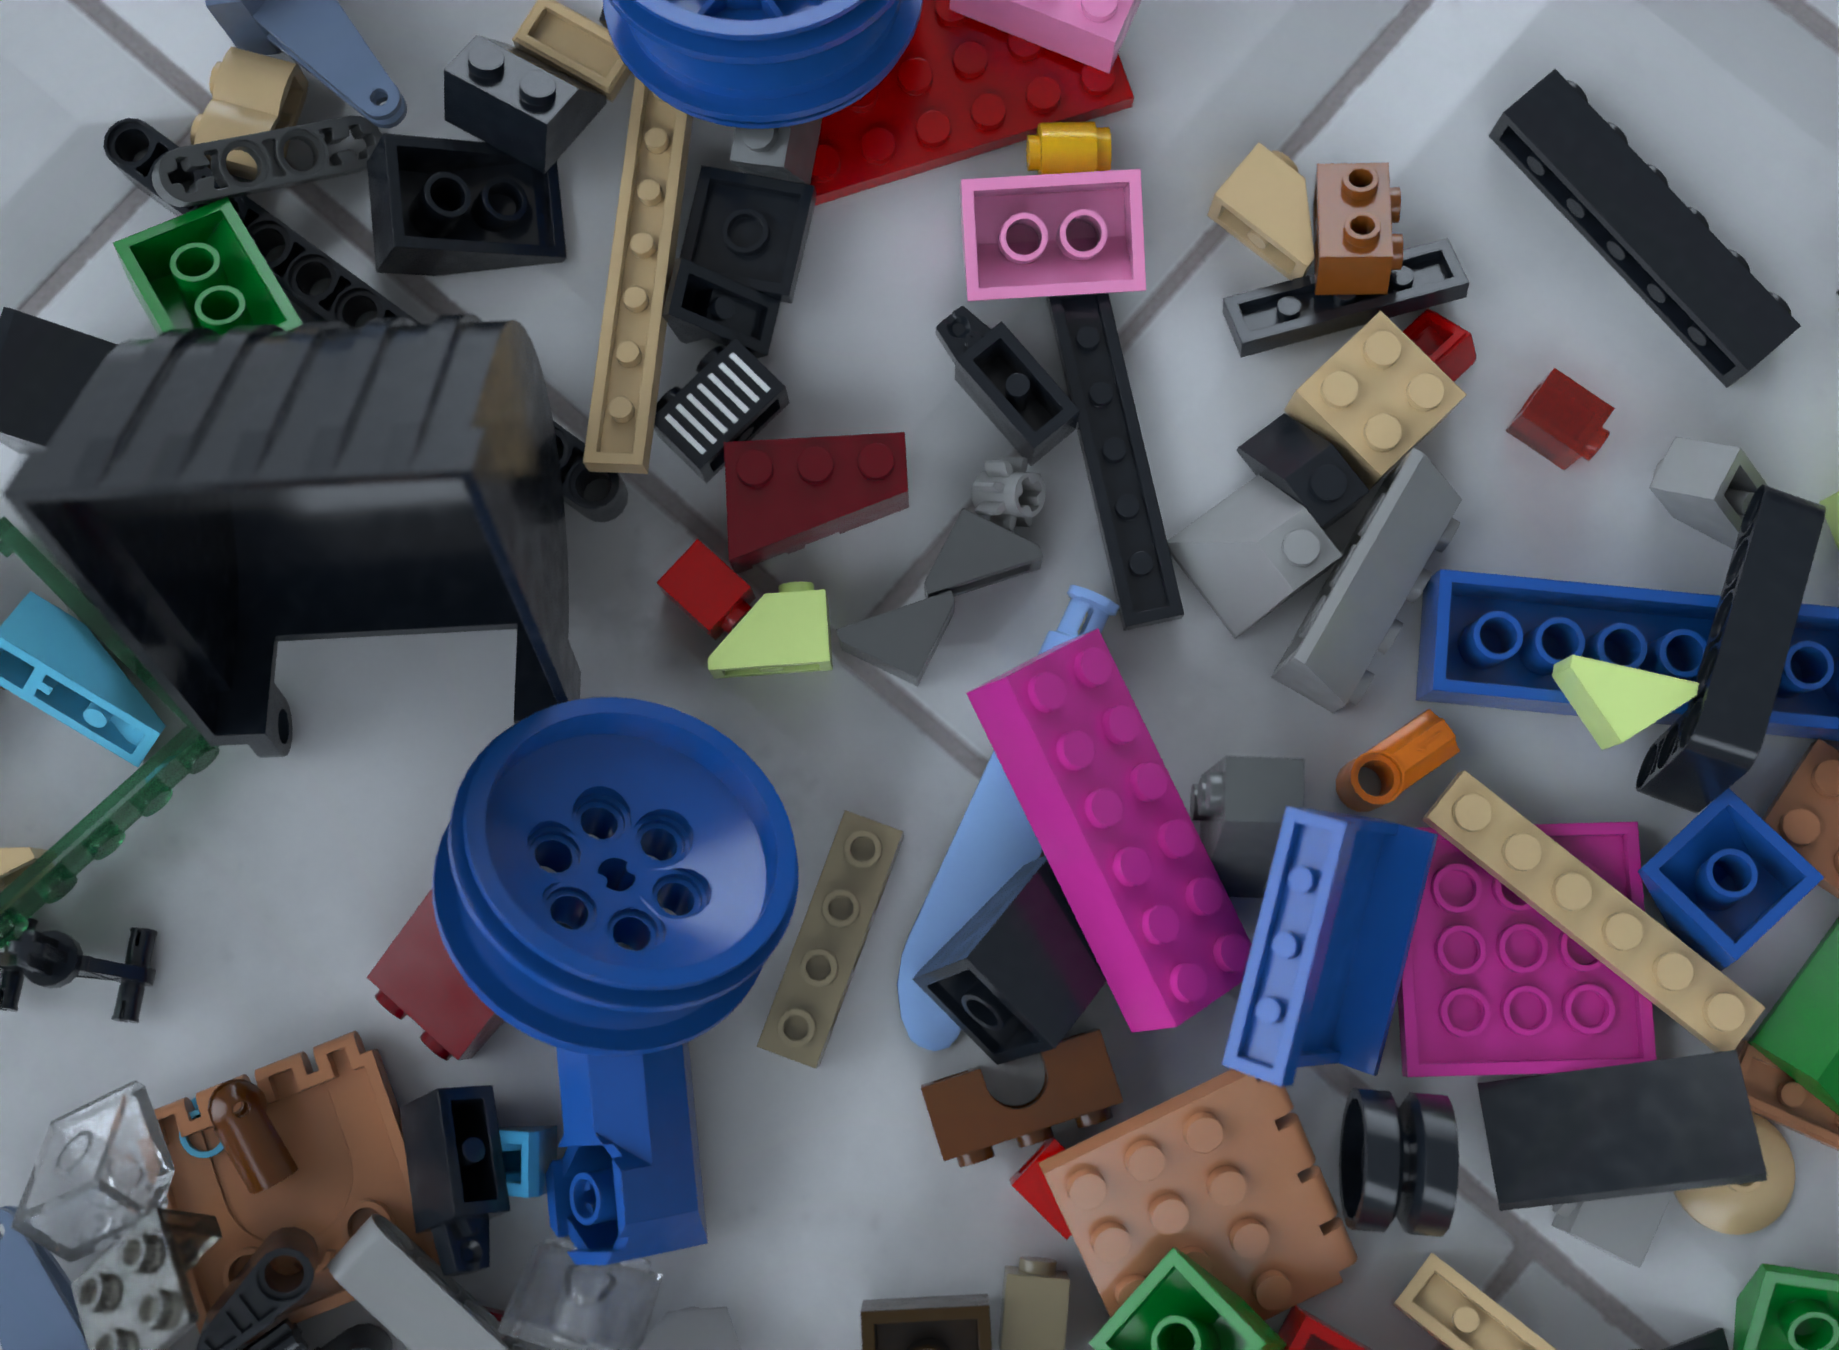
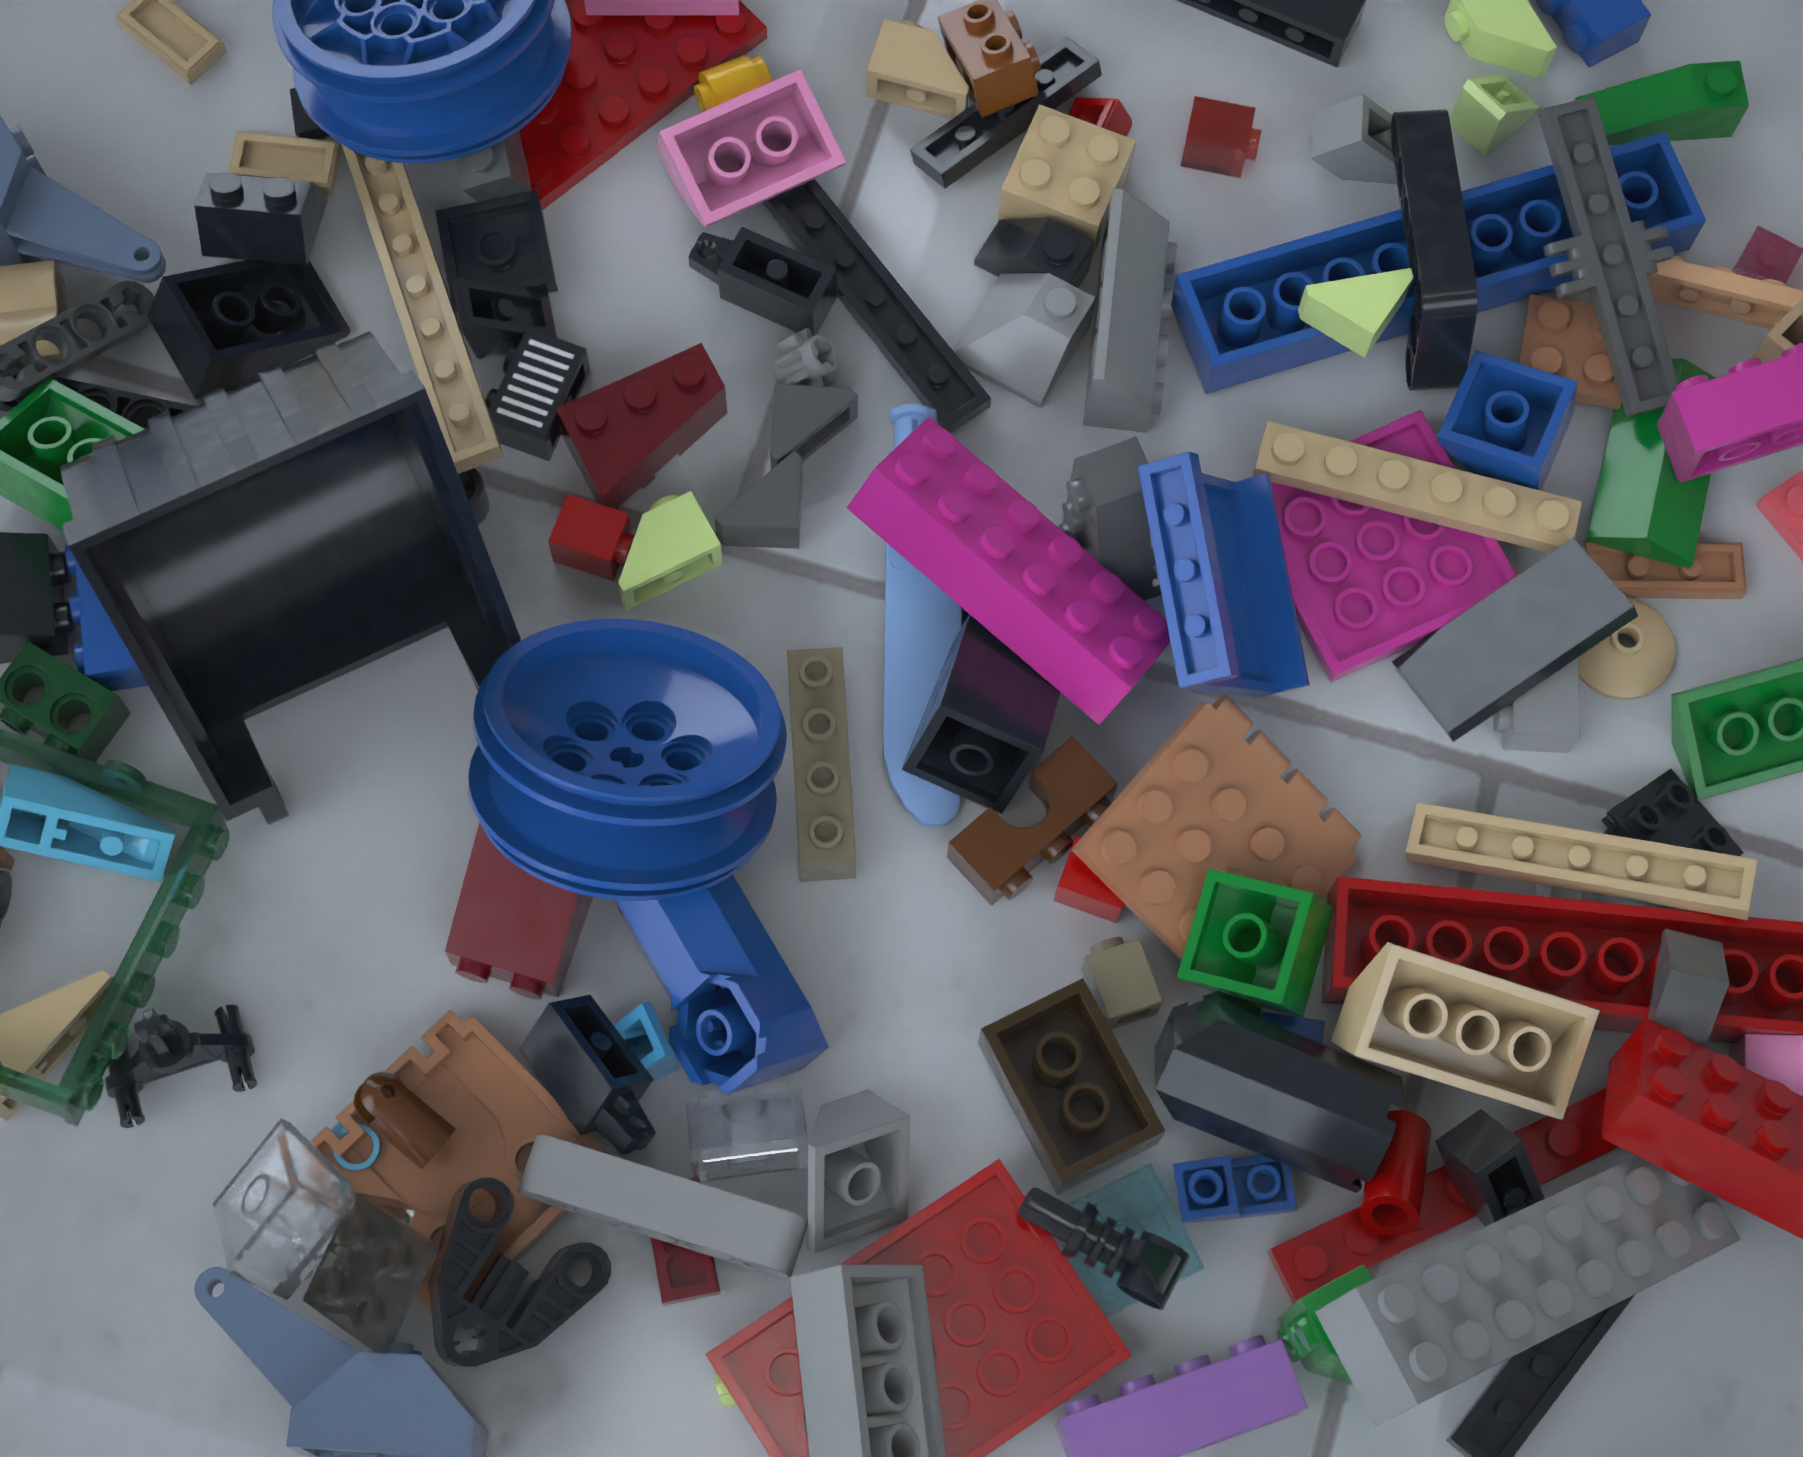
camera: 30 degrees left, 10 degrees down
(1398, 761) = (1220, 431): orange piece -> none
(1398, 1162) = (1355, 735): black wheel -> none

